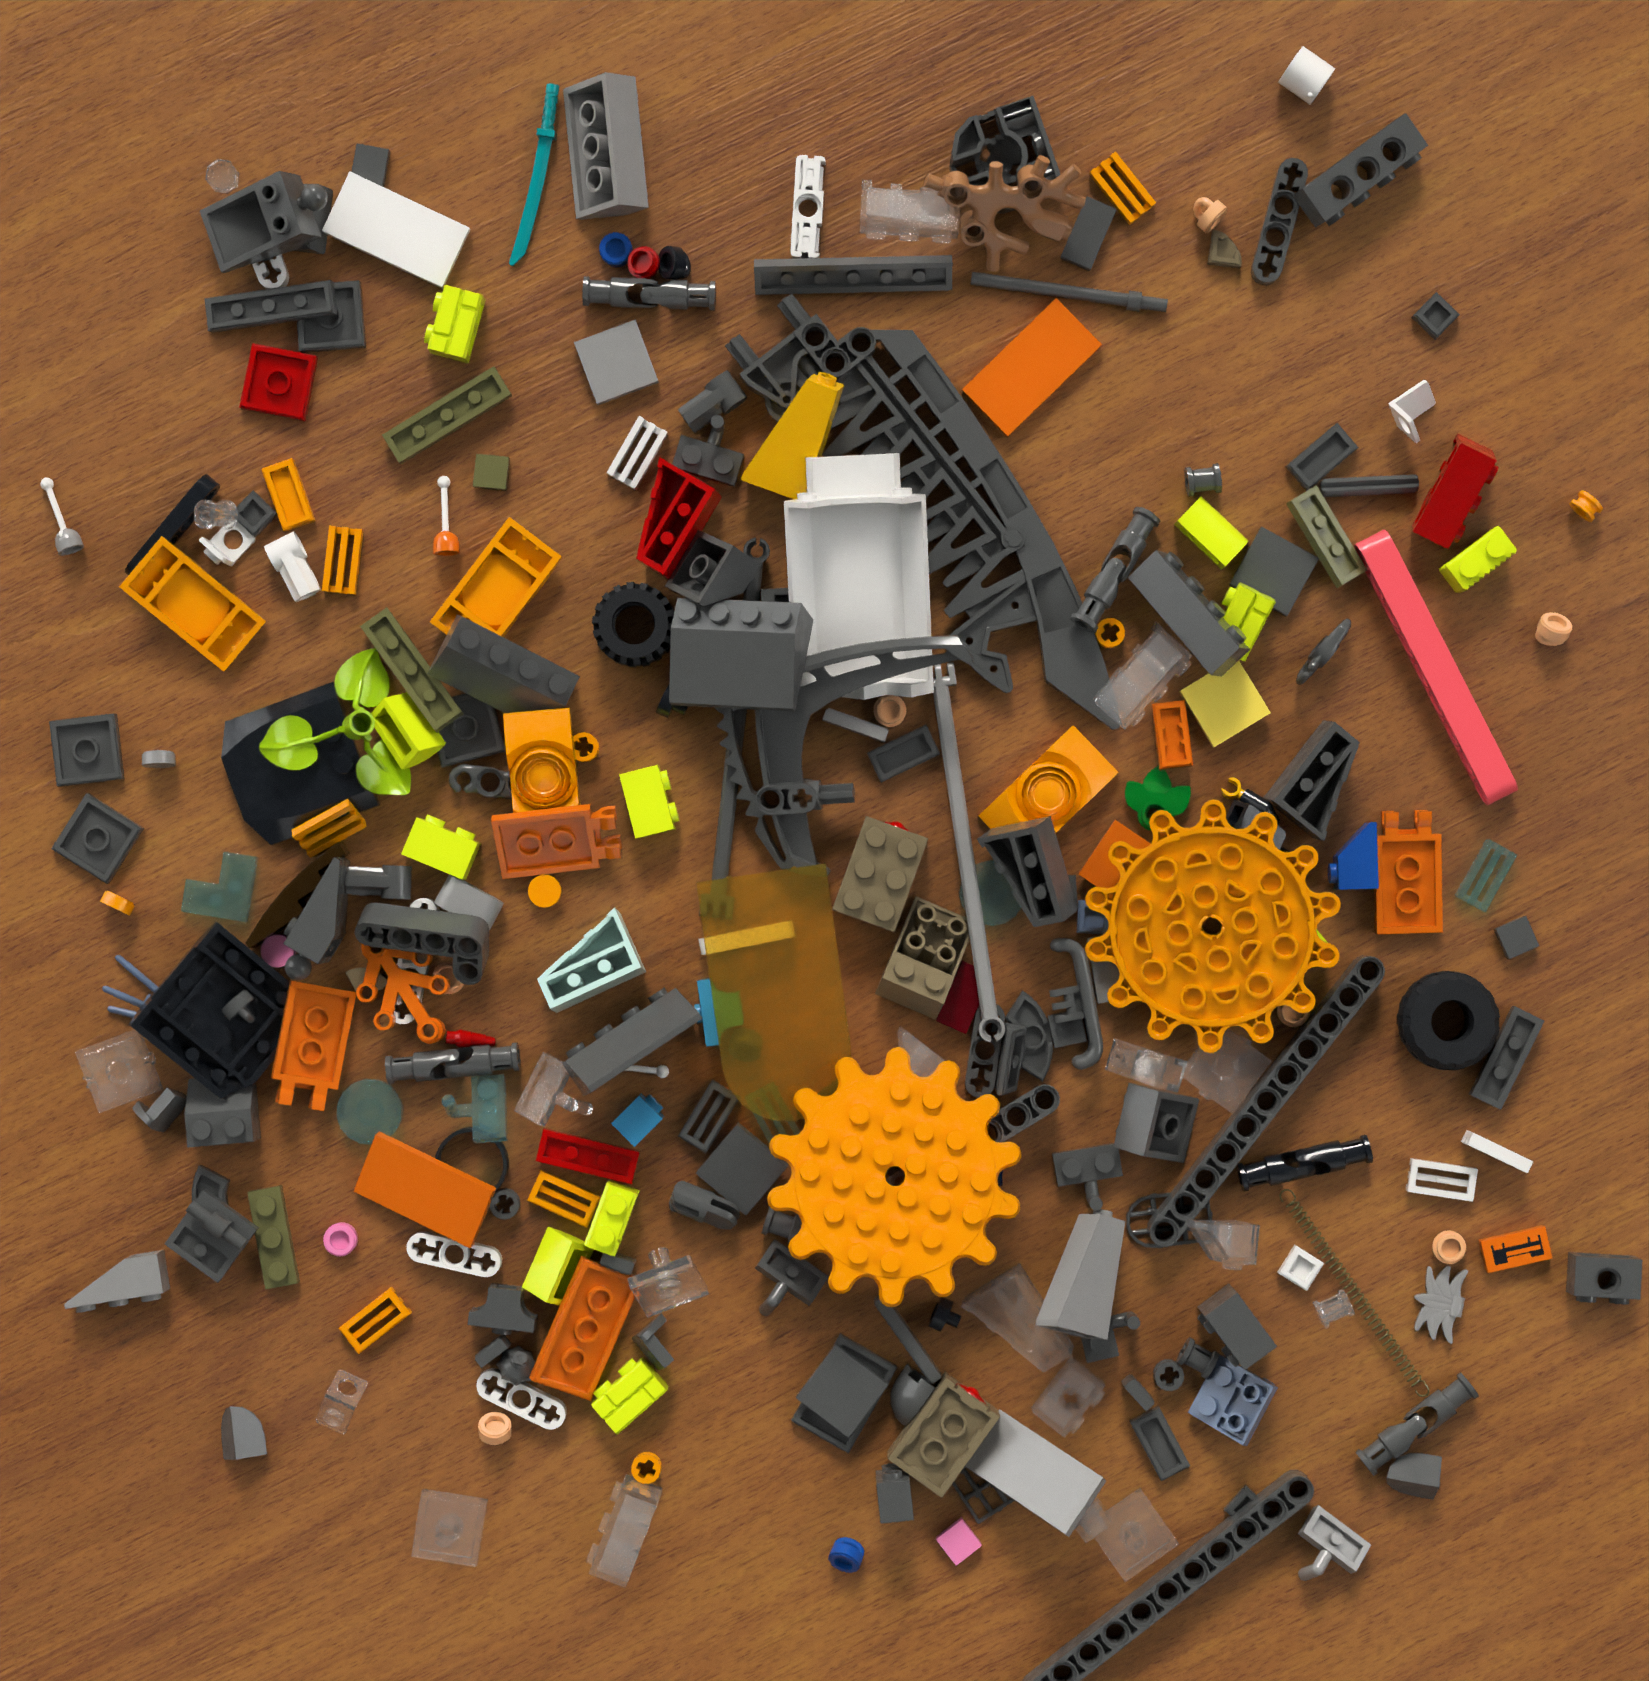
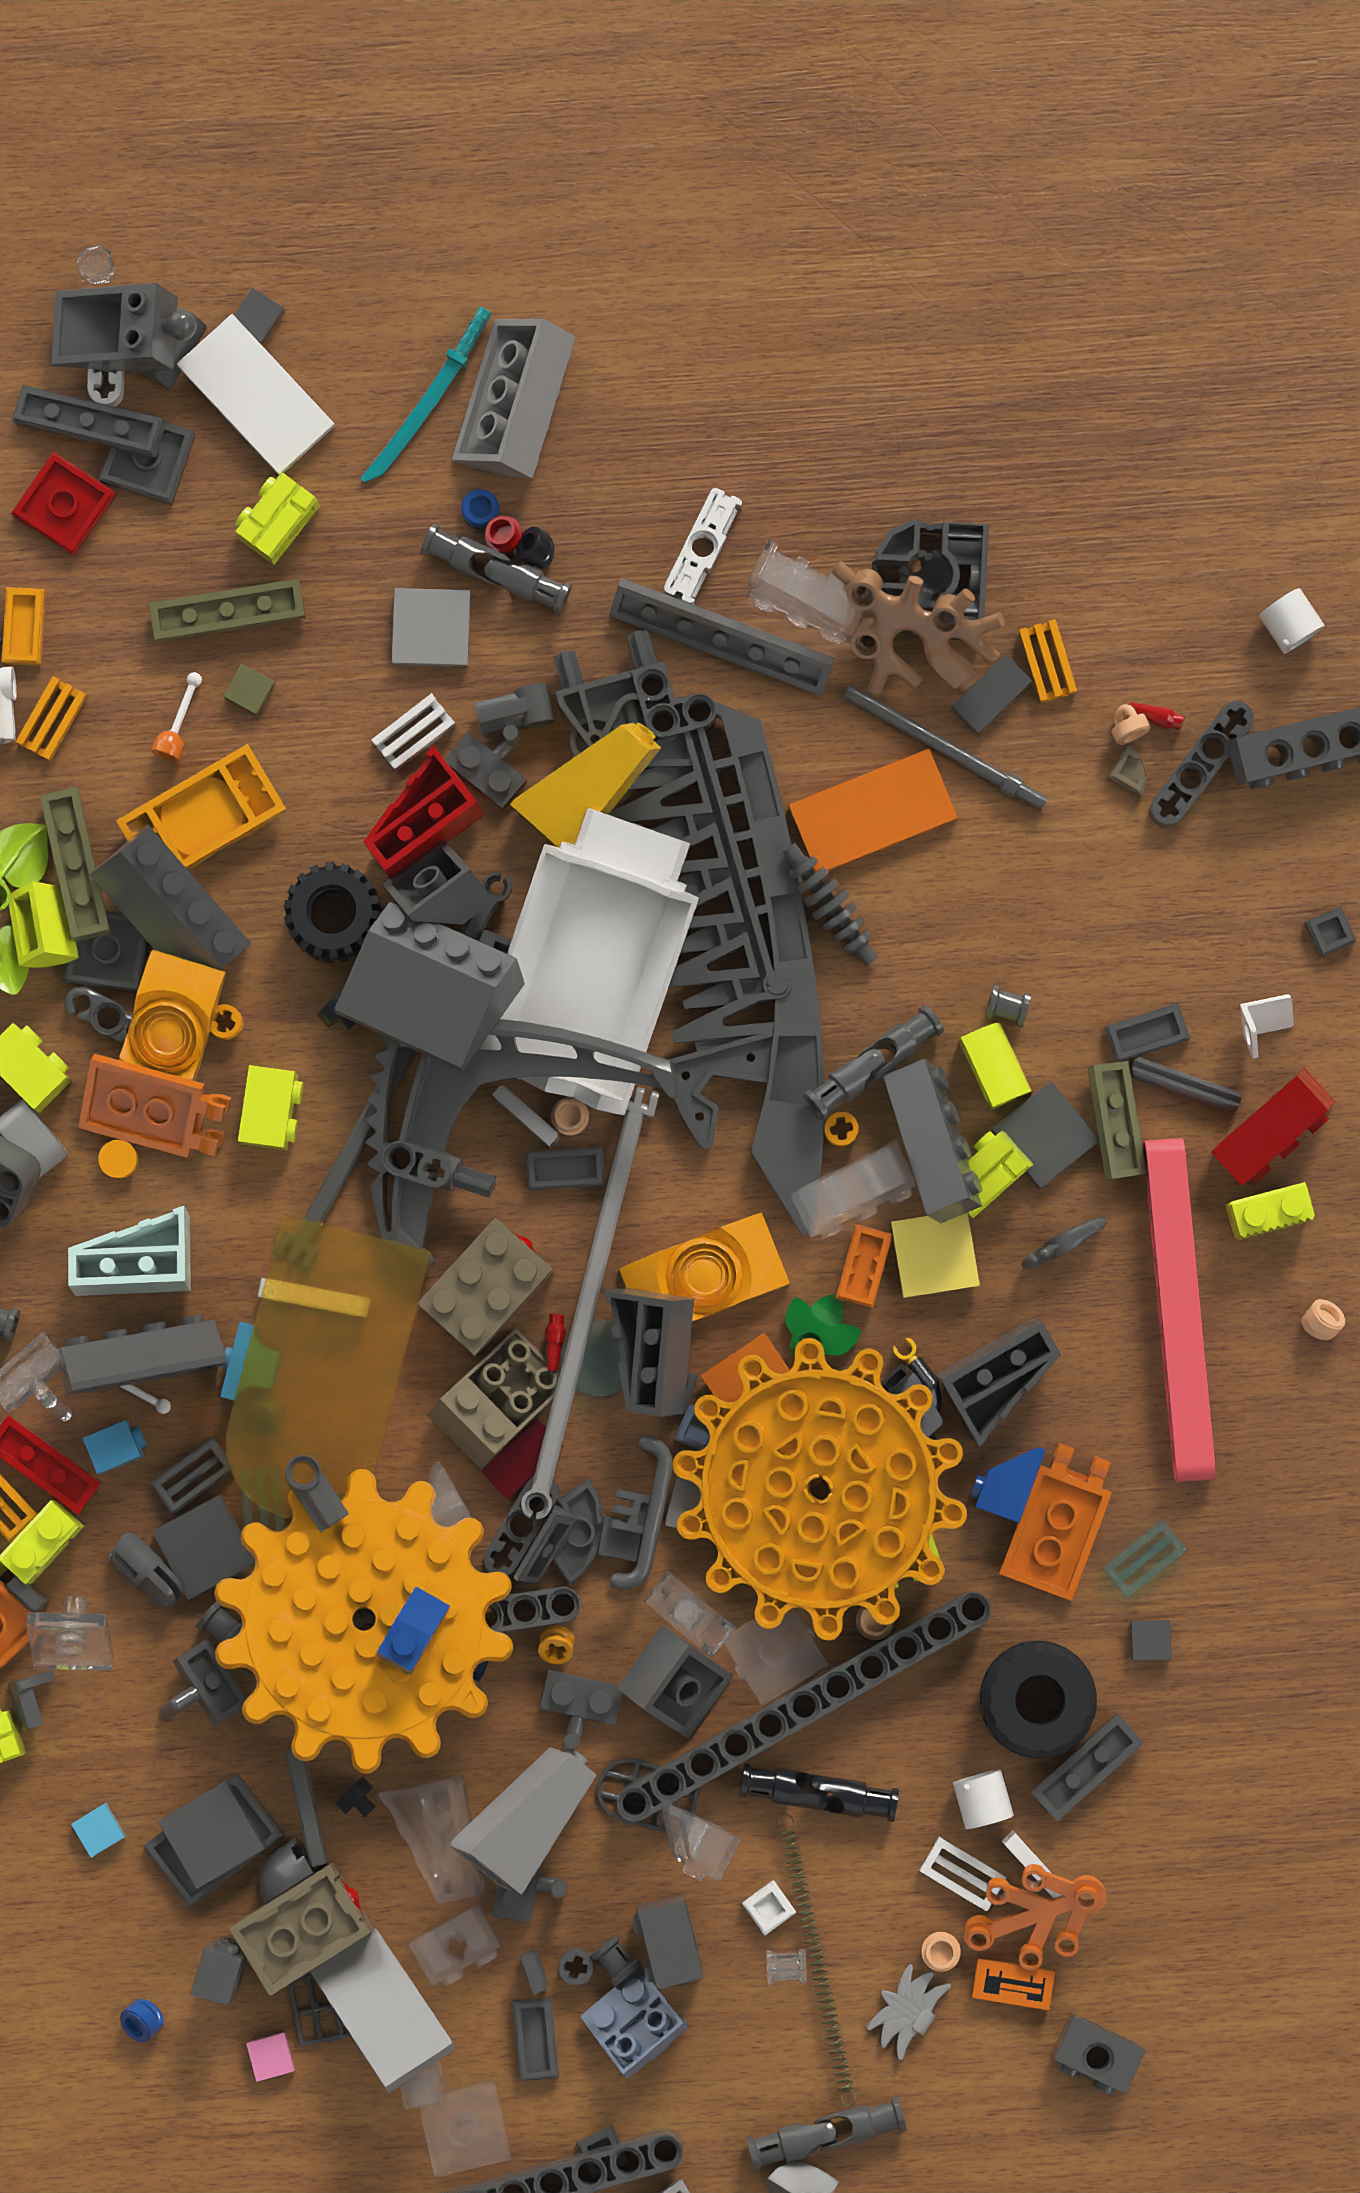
camera: 25 degrees right, 5 degrees down
(750, 1422) = (98, 1830): none -> medium azure tile
(818, 1095) = (316, 1496): none -> dark grey piece
(939, 1170) = (412, 1630): none -> blue slope
(951, 893) = (554, 1339): none -> red piece
(1028, 456) = (830, 904): none -> dark grey piece
(1051, 1132) = (556, 1644): none -> light orange bush
(1230, 196) = (1159, 715): none -> red piece
(1436, 1116) = (983, 1799): none -> white piece
(1514, 1186) = (1038, 1912): none -> orange plant

